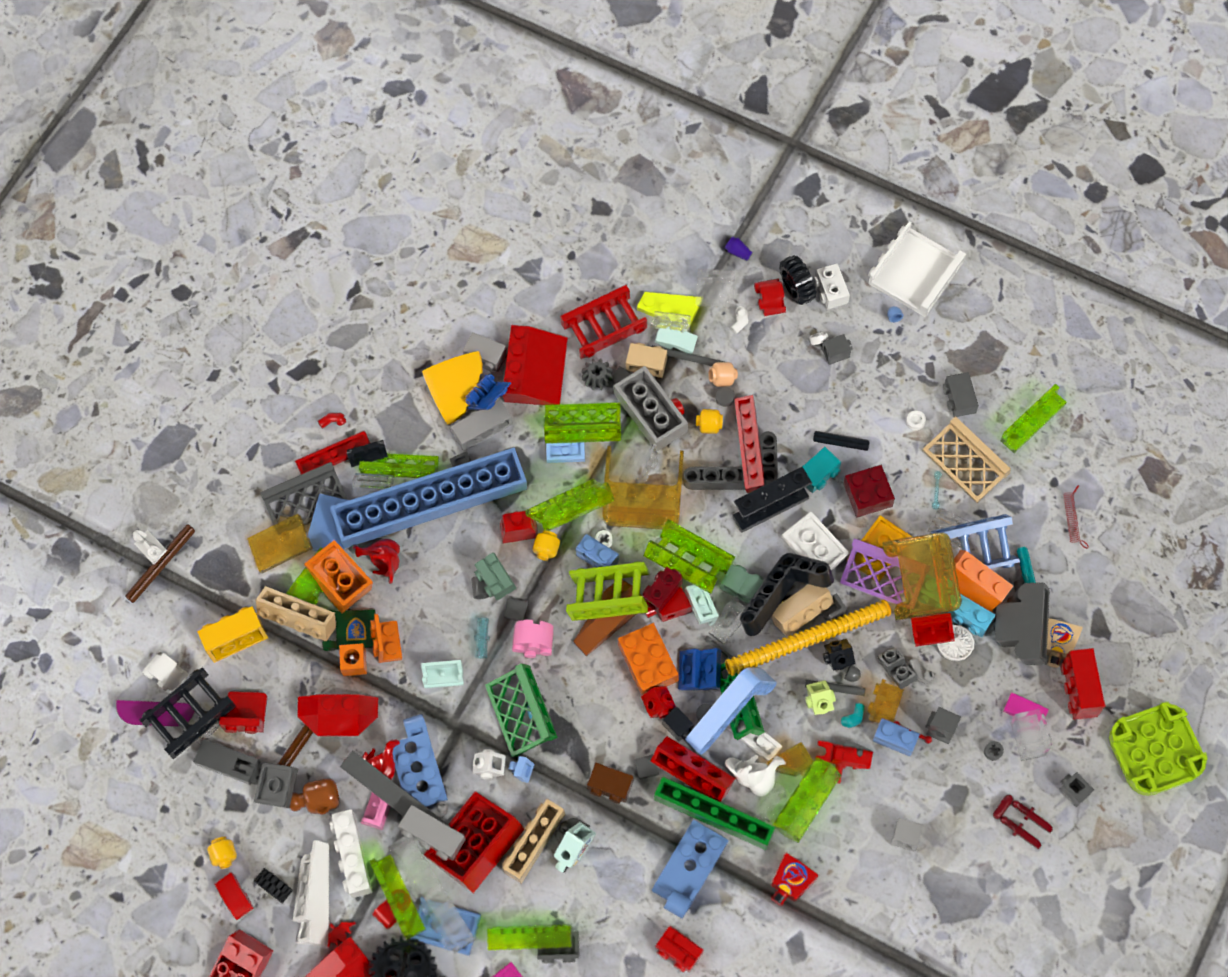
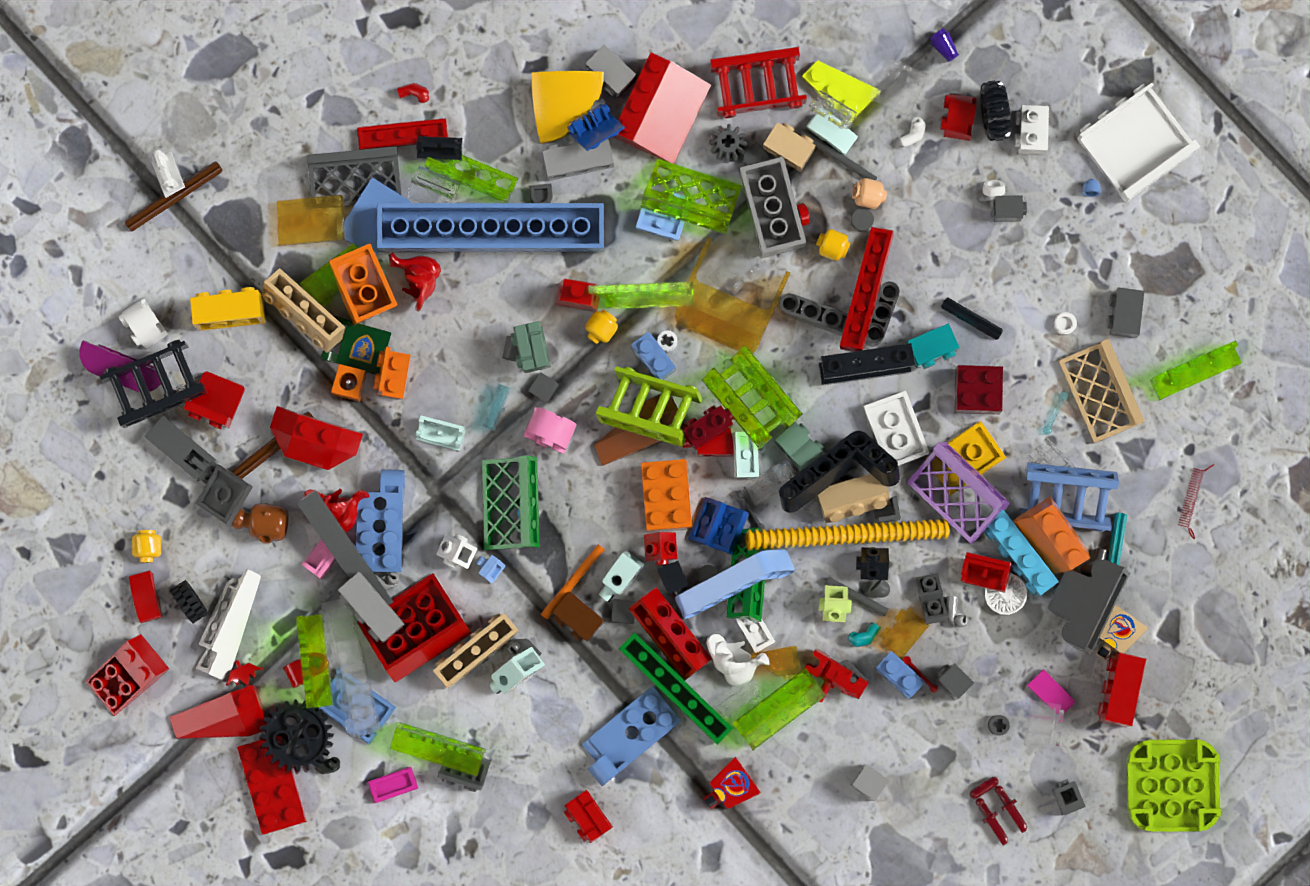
camera: 15 degrees right, 15 degrees up
(351, 853) = (281, 595): white brick -> none
(595, 756) = (574, 579): none -> orange bar
(635, 727) = (627, 568): none -> light aqua torso
(926, 575) = (999, 512): clear yellow windscreen -> none

